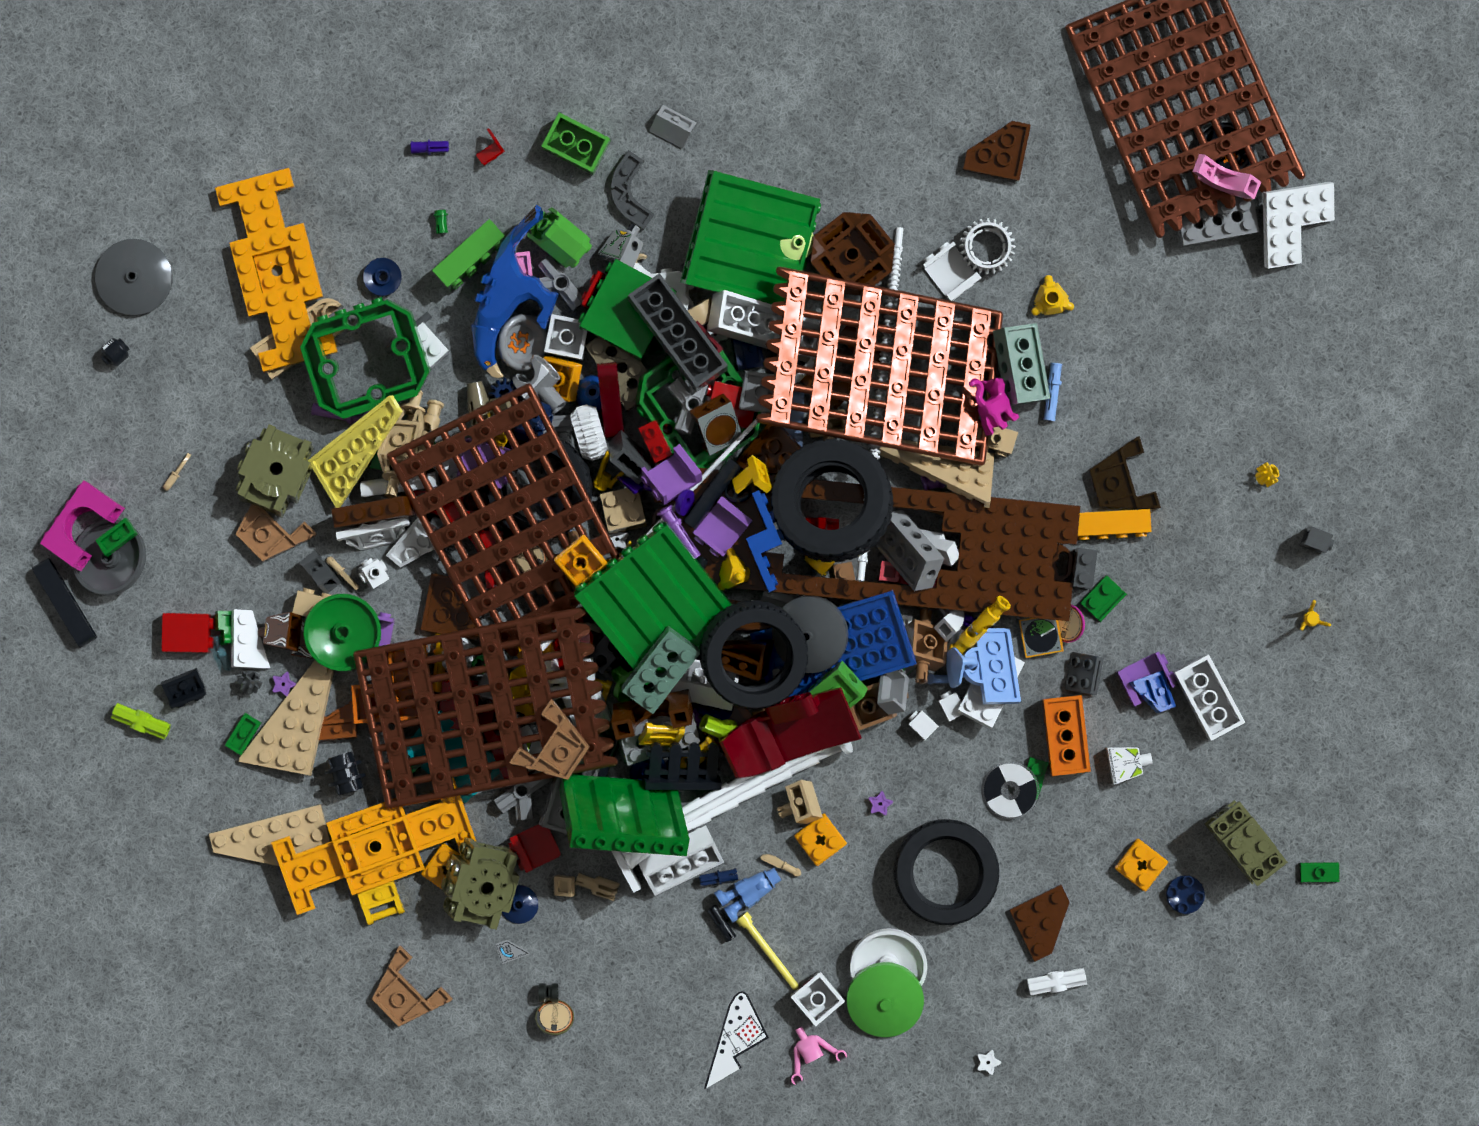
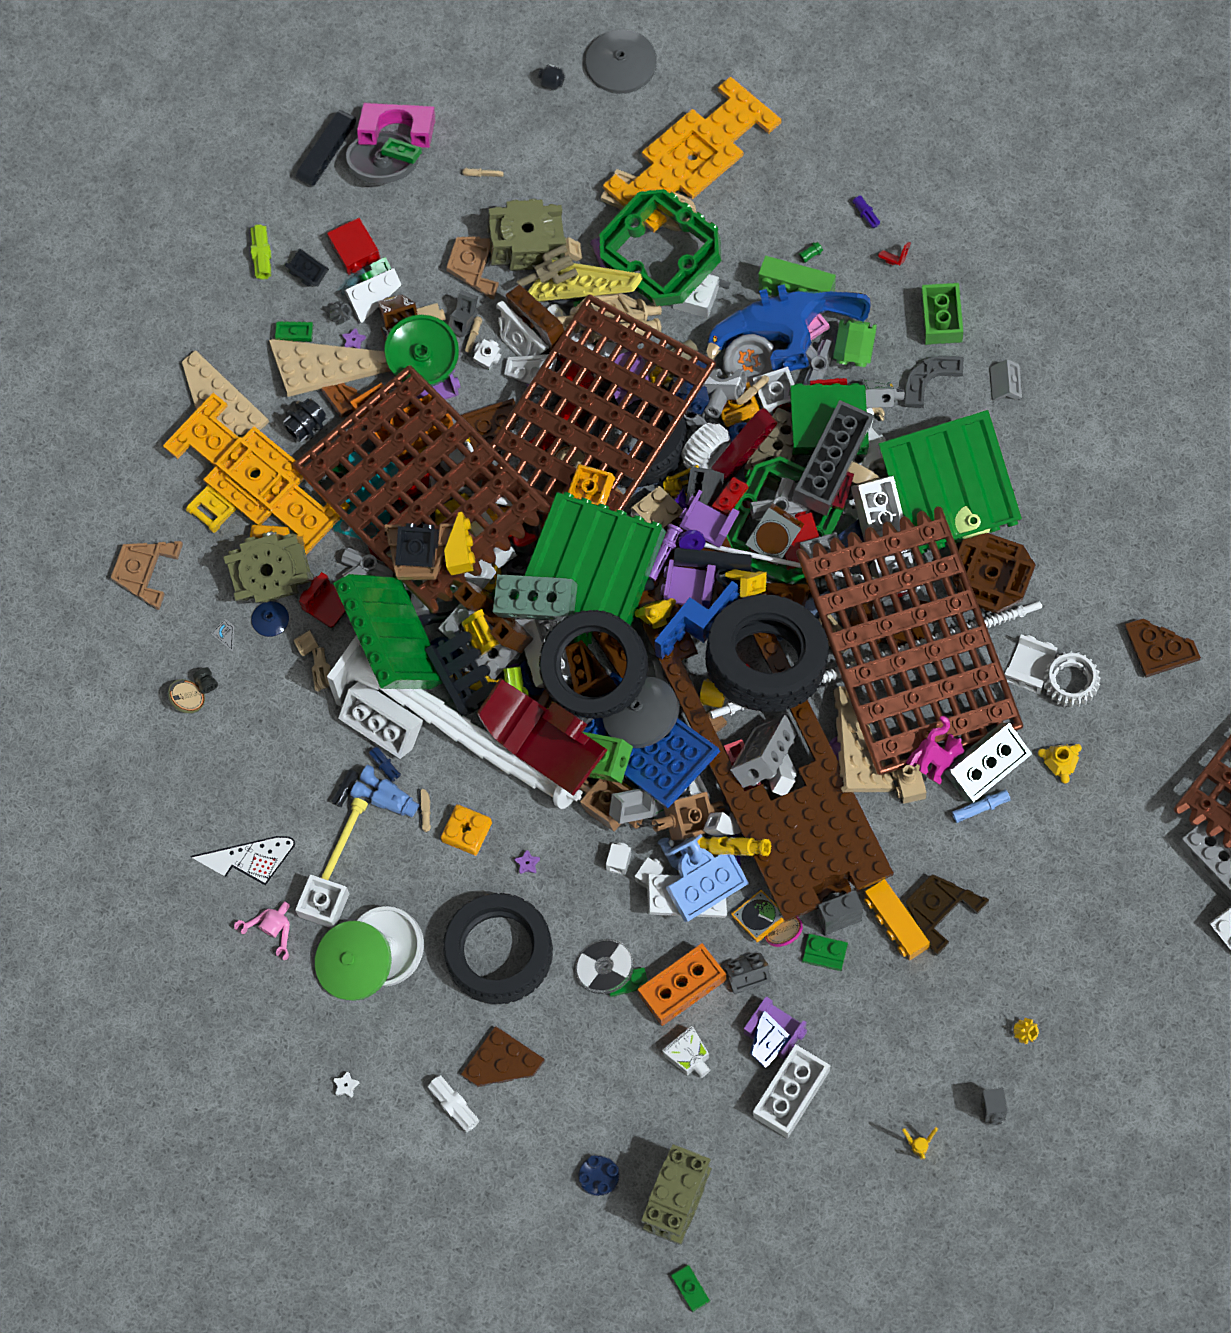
camera: 70 degrees right, 20 degrees down
(310, 434) = (573, 249): none -> tan plate
(327, 470) = (549, 269): none -> dark tan plant
(372, 276) = (734, 226): dark blue dish -> none
(553, 747) = (416, 545): none -> black plate
(560, 364) = (753, 390): none -> tan piece
(577, 712) = (458, 550): none -> yellow slope
(802, 803) = (489, 793): tan brick -> none
(1153, 861) = (612, 1129): light orange brick -> none

